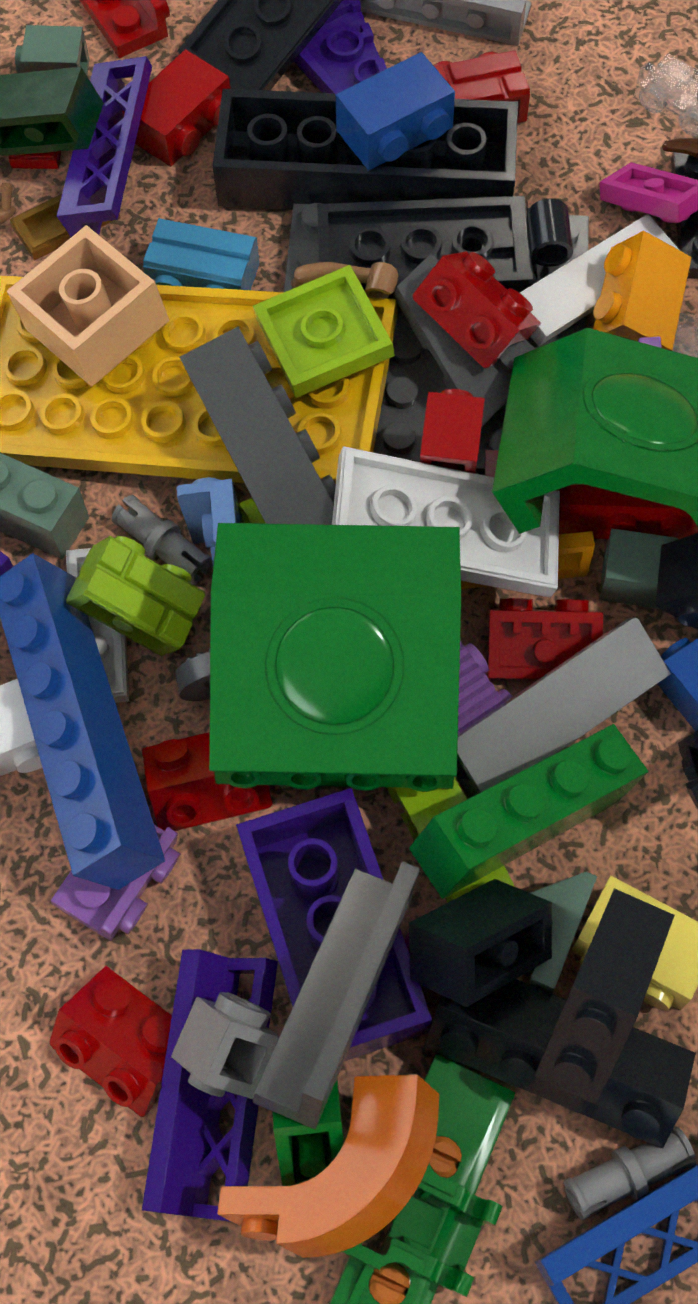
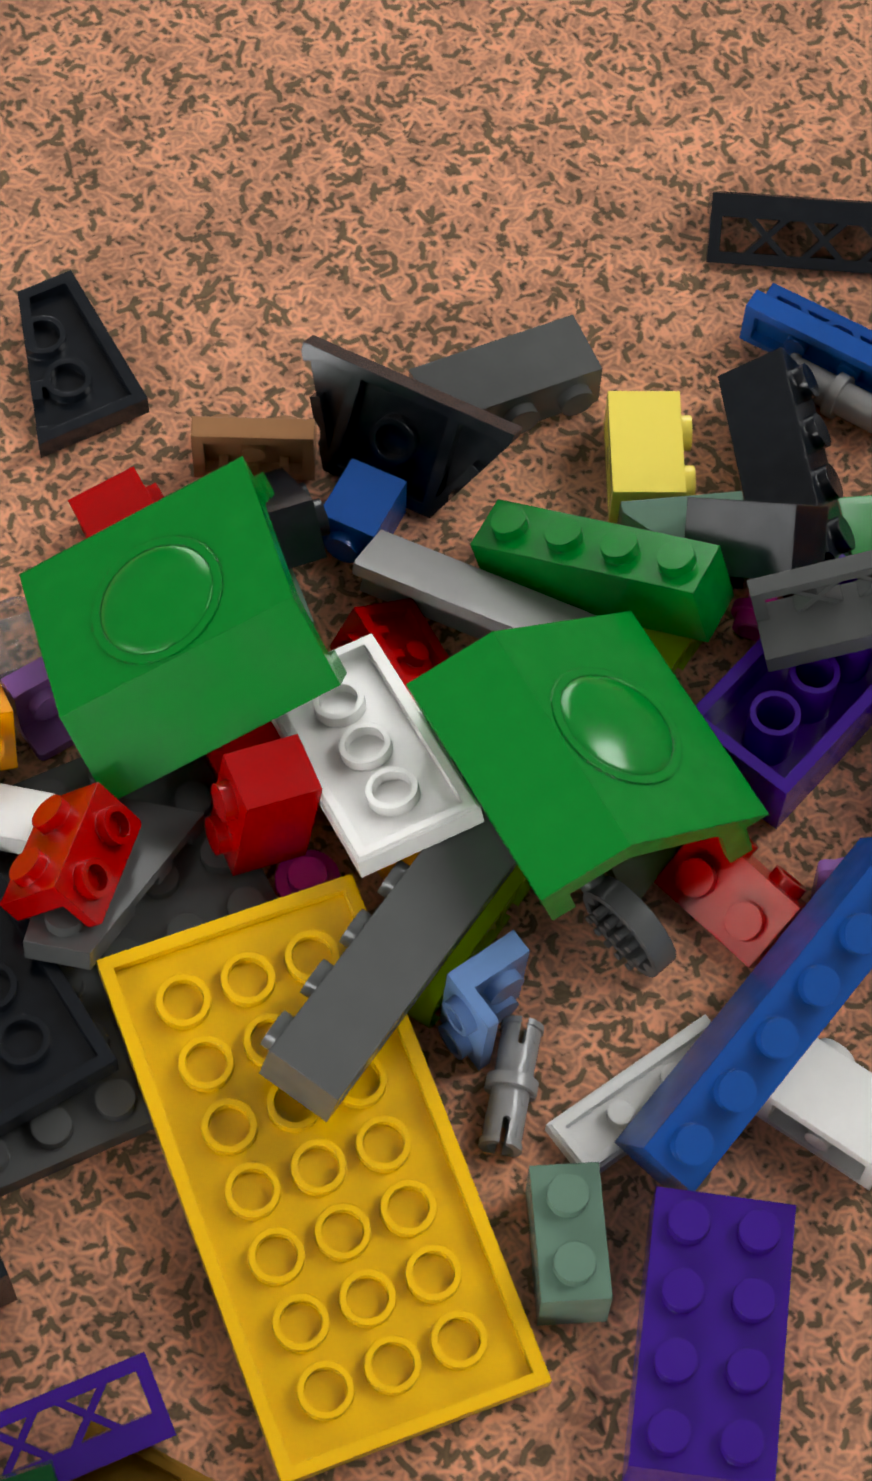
camera: 125 degrees left, 5 degrees down
(89, 305) = (302, 1280): light nougat brick -> none
(136, 595) = (608, 1042): lime brick -> none
(201, 257) = (130, 1248): dark azure brick -> none
(323, 331) = (193, 1000): lime plate -> none
(379, 279) = (88, 984): medium nougat piece -> none
(605, 997) = (743, 417): black brick -> none

